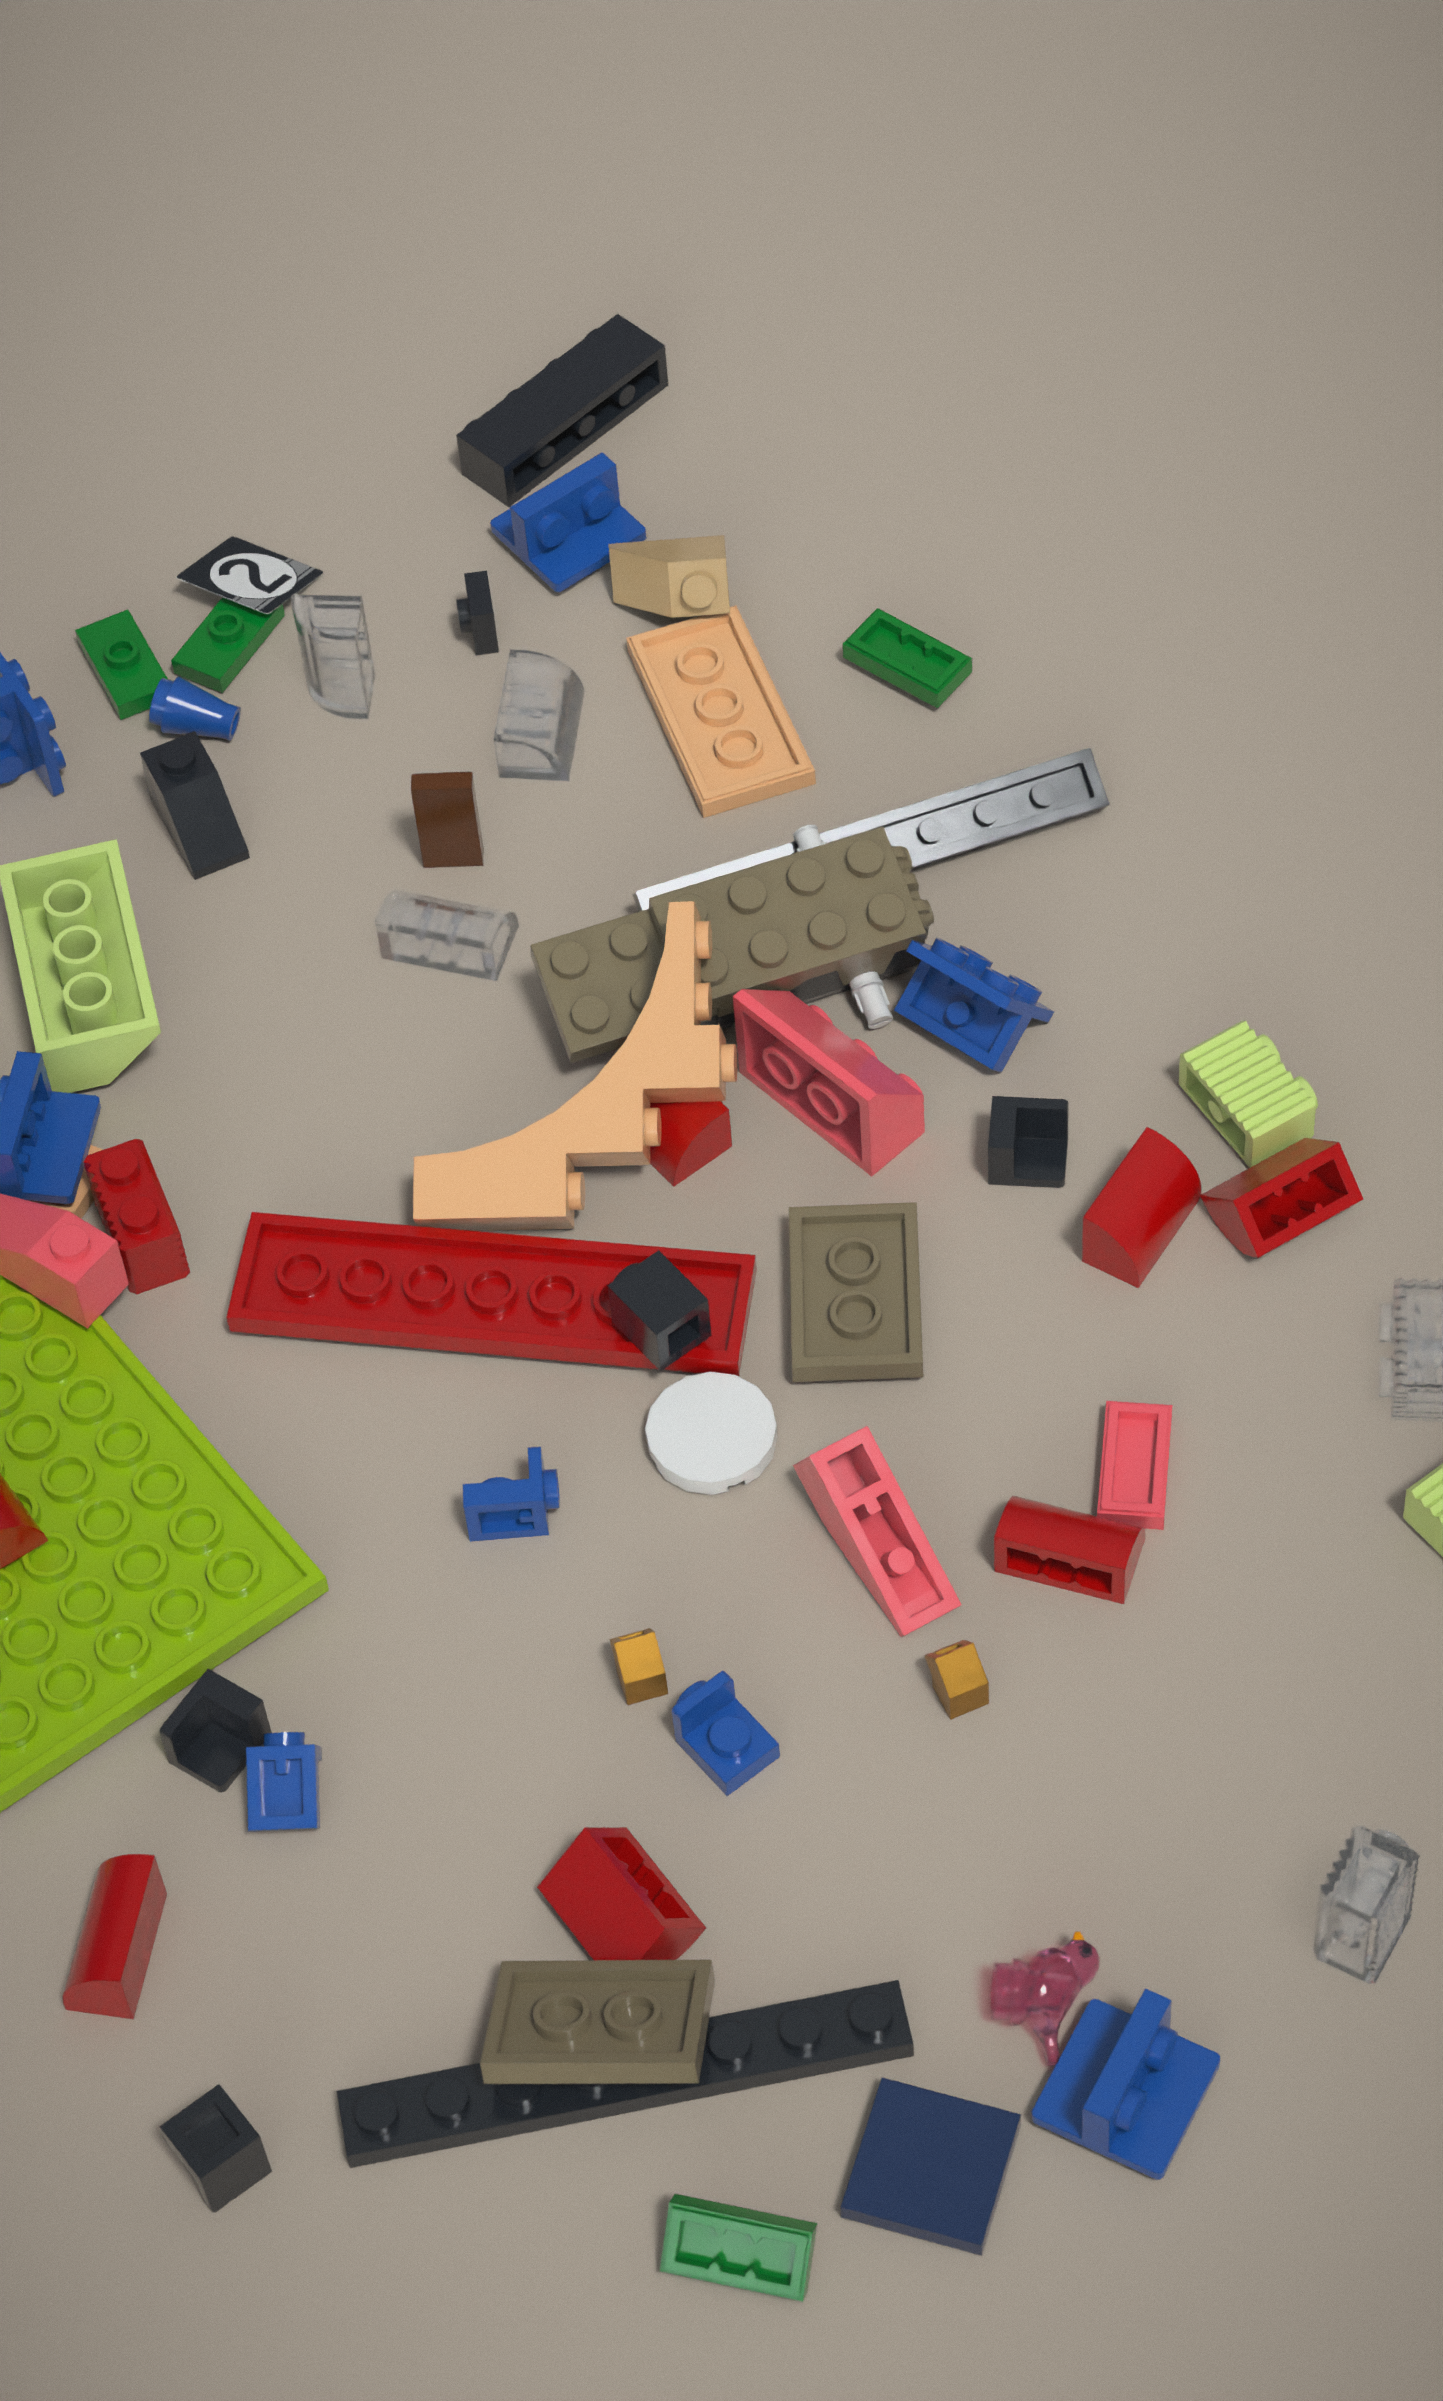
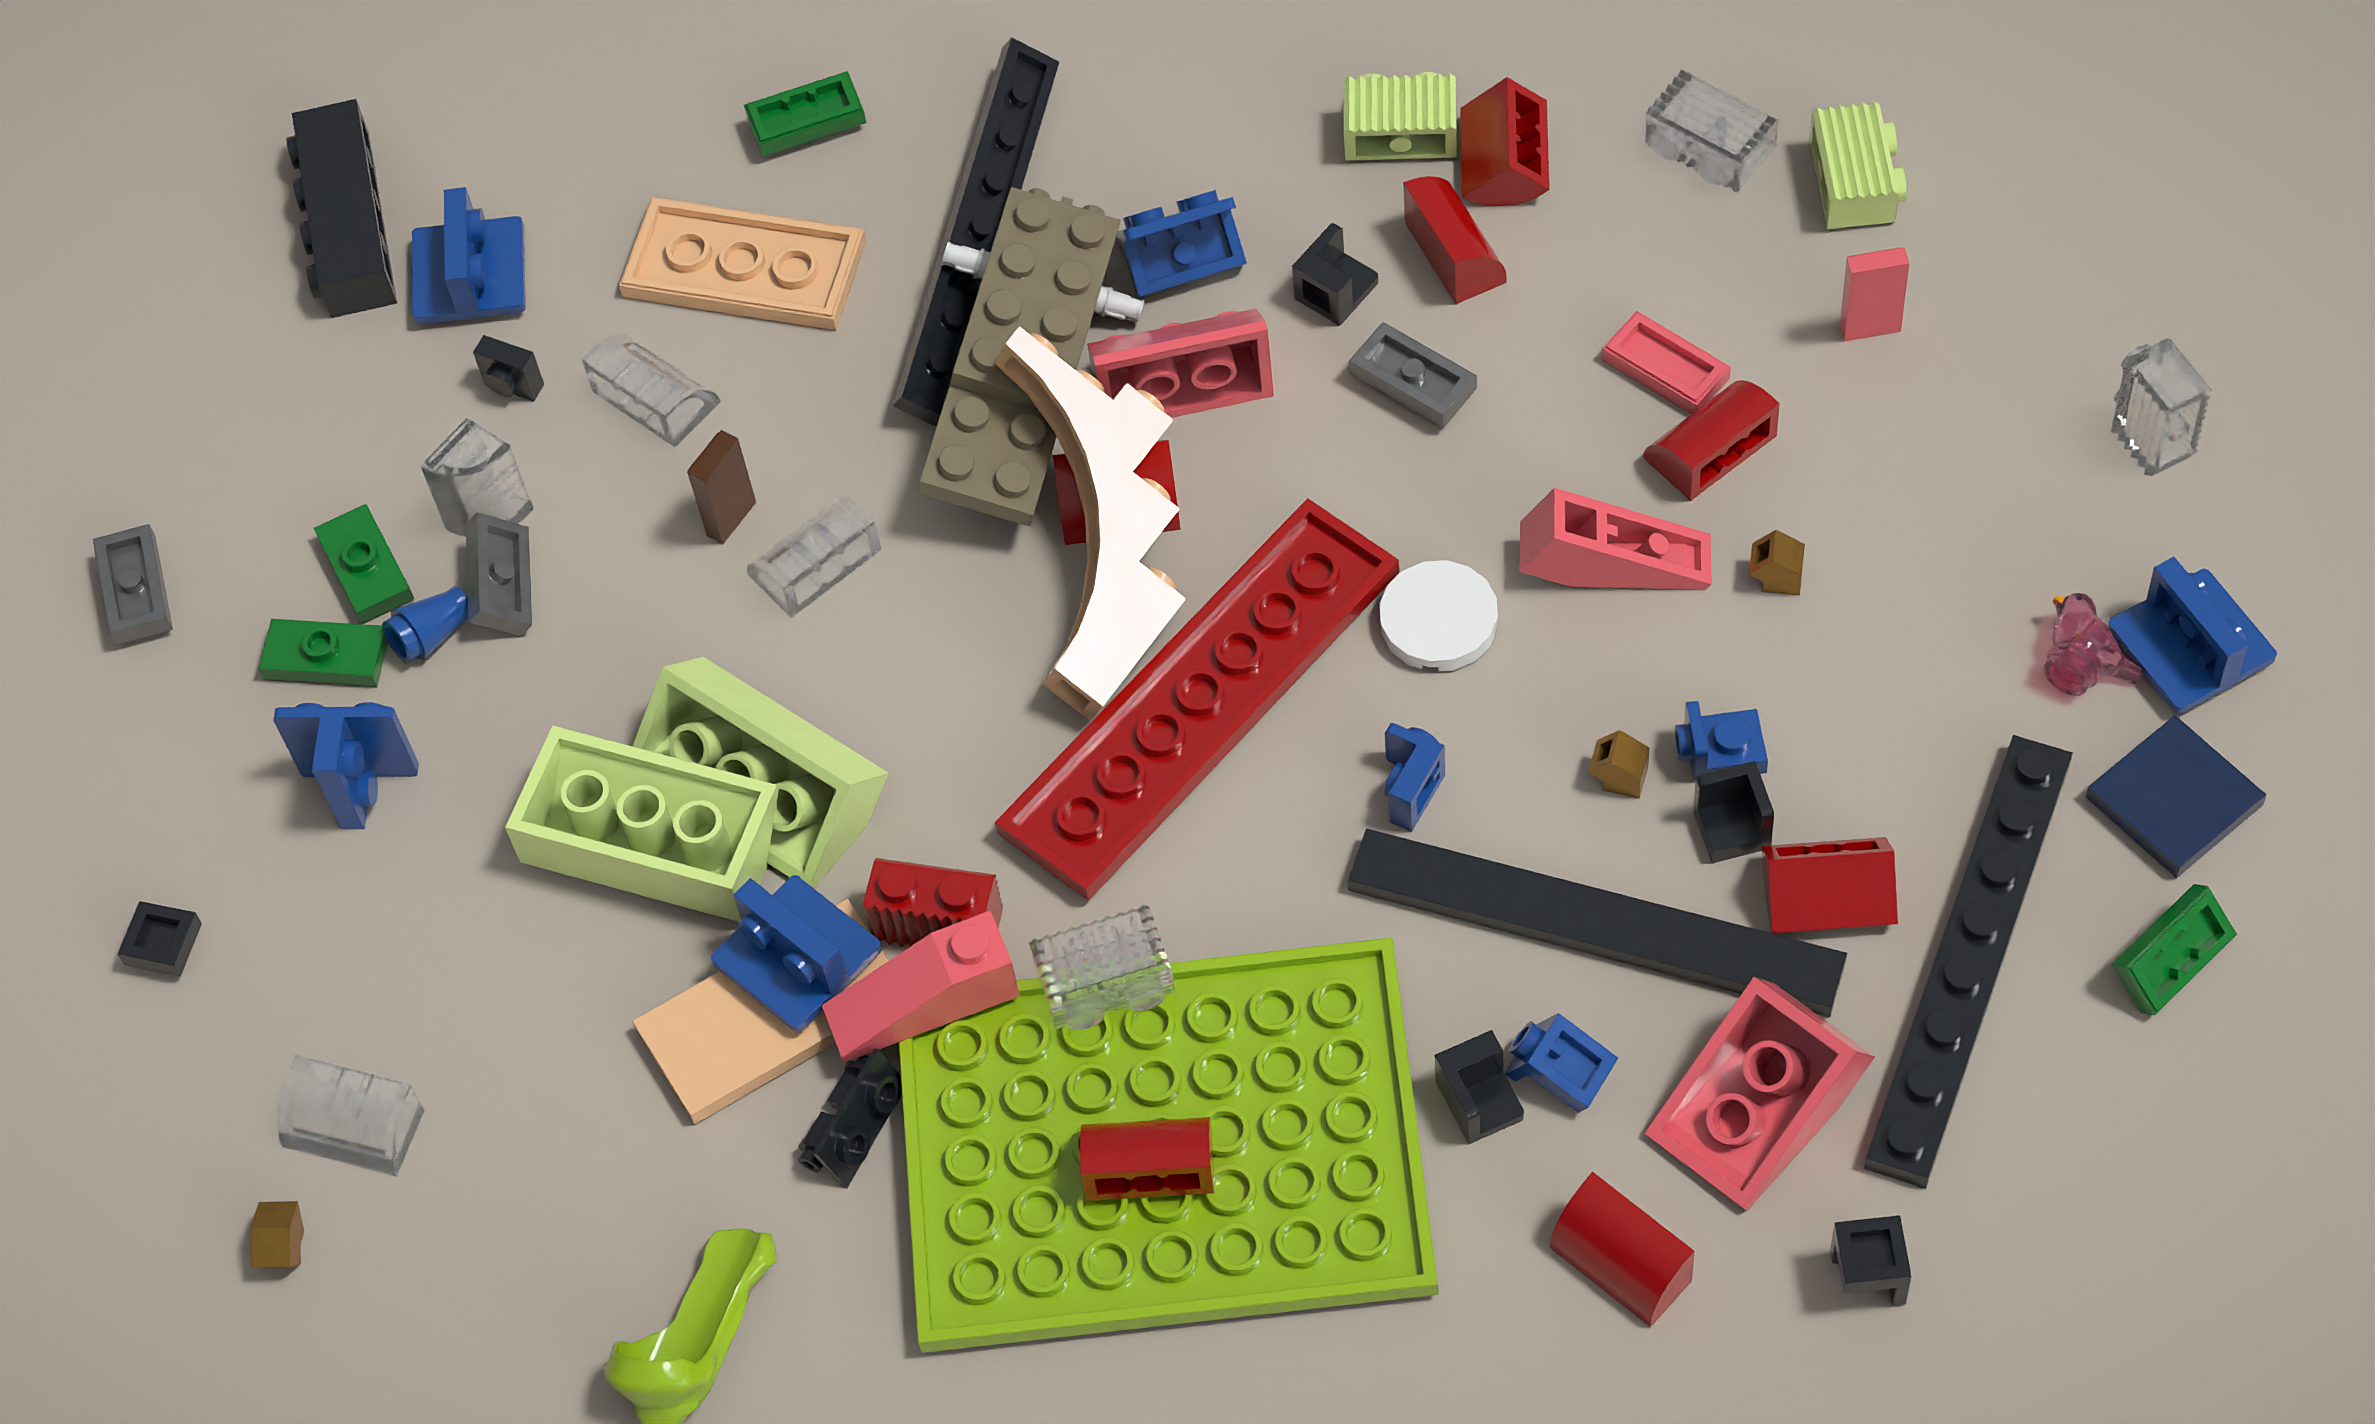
camera: 55 degrees left, 5 degrees up
(100, 502) = (132, 584): none -> flat silver plate
(135, 1366) = (1102, 968): none -> clear brick
(193, 805) = (533, 668): black slope -> none
(209, 995) = (729, 726): none -> yellowish green slope
(249, 574) = (312, 513): sticker -> none
(270, 728) = (498, 574): none -> flat silver plate
(355, 1962) = (1758, 1092): none -> coral slope
(461, 1738) = (1593, 920): none -> black tile
(598, 2022) = (1940, 938): dark tan plate -> none
(646, 1784) = (1733, 811): none -> black panel
(659, 1310) = (1326, 578): black brick -> none
(671, 576) = (595, 217): tan slope -> none
(855, 1292) = (1385, 454): dark tan plate -> none
(961, 1265) = (1413, 374): none -> flat silver plate
(1316, 1582) = (1874, 293): none -> coral tile

